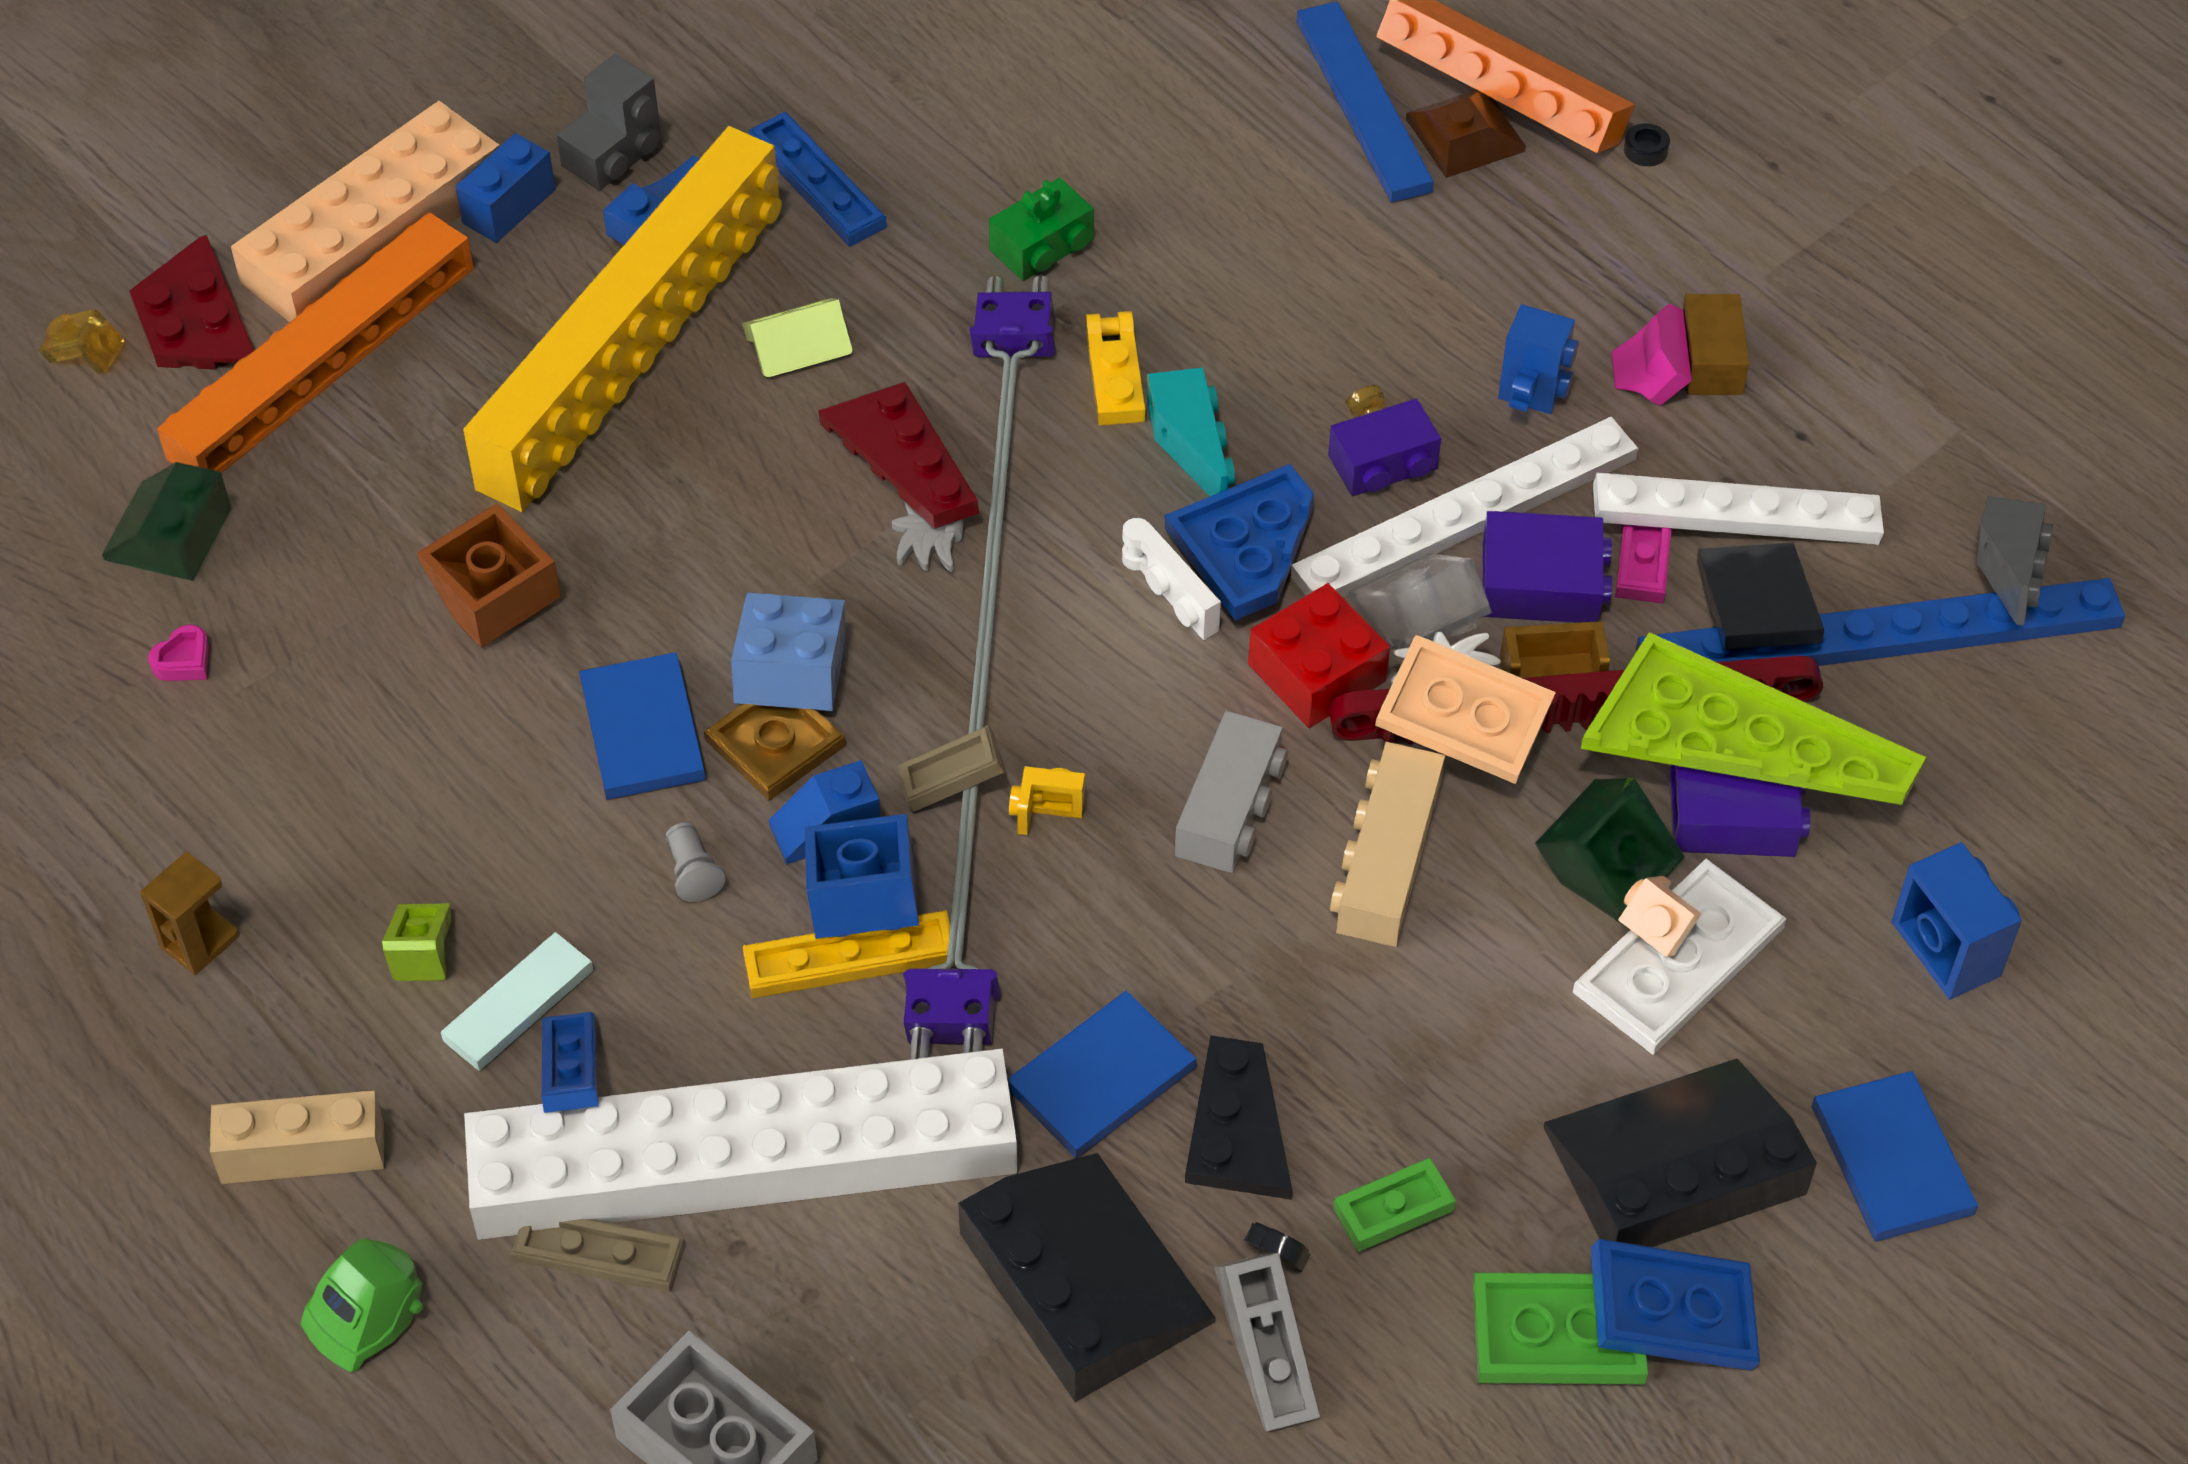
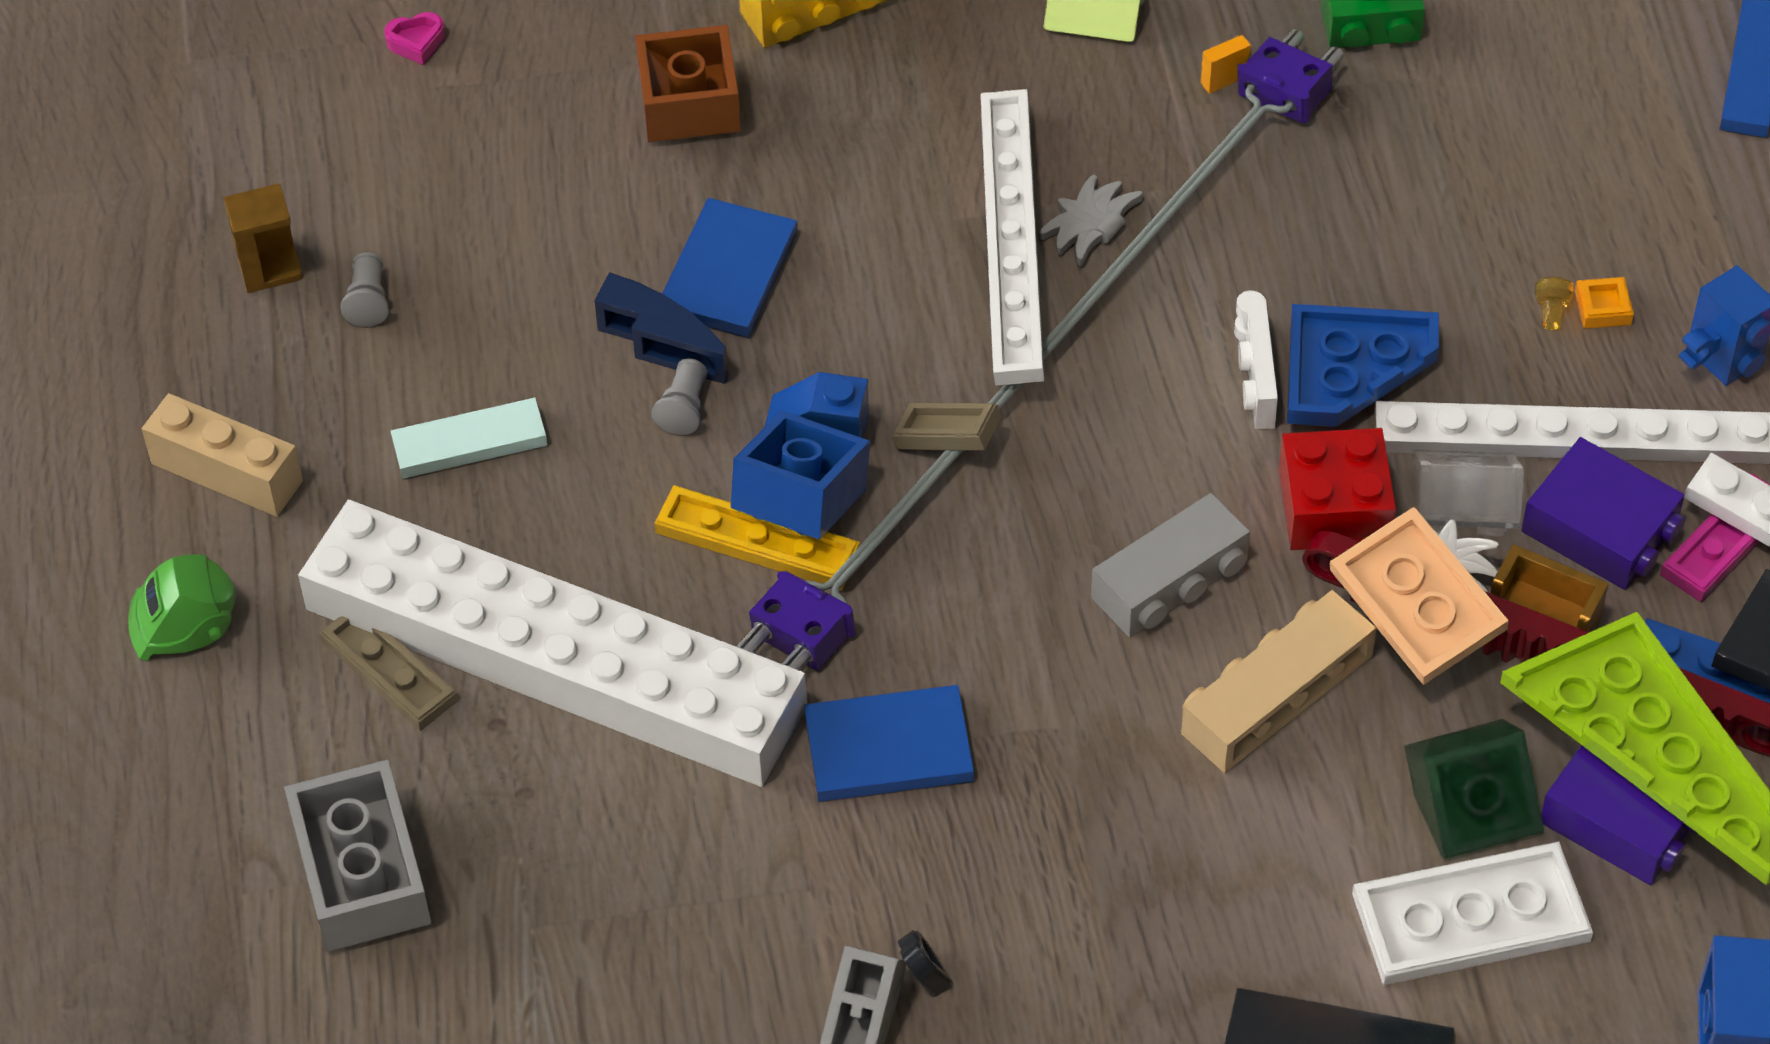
camera: 35 degrees right, 0 degrees up
(322, 919) = (365, 297): none -> light grey pin
(416, 942) = (418, 346): lime slope -> none
(569, 1062) = (461, 503): blue tile -> none
(627, 808) = (658, 327): none -> dark blue slope
(774, 744) = (828, 331): pearl gold tile -> none
(789, 651) = (882, 262): medium blue brick -> none
(885, 574) = (1011, 238): none -> white plate
(904, 449) = (1109, 143): dark red wing -> none
(952, 334) = (1221, 63): none -> light orange tile
(1047, 792) = (1013, 486): yellow bracket -> none
(1081, 1271) = (750, 891): black slope -> none
(1115, 369) = (1350, 160): yellow plate -> none
(1186, 428) = (1373, 232): teal slope -> none
(1237, 1124) = (967, 846): black wing -> none
(1384, 447) = (1537, 339): dark purple brick -> none
(1394, 1204) = (1049, 982): bright green plate -> none
(1408, 384) = (1604, 302): none -> light orange tile
(1658, 914) = (1466, 863): light nougat bracket -> none

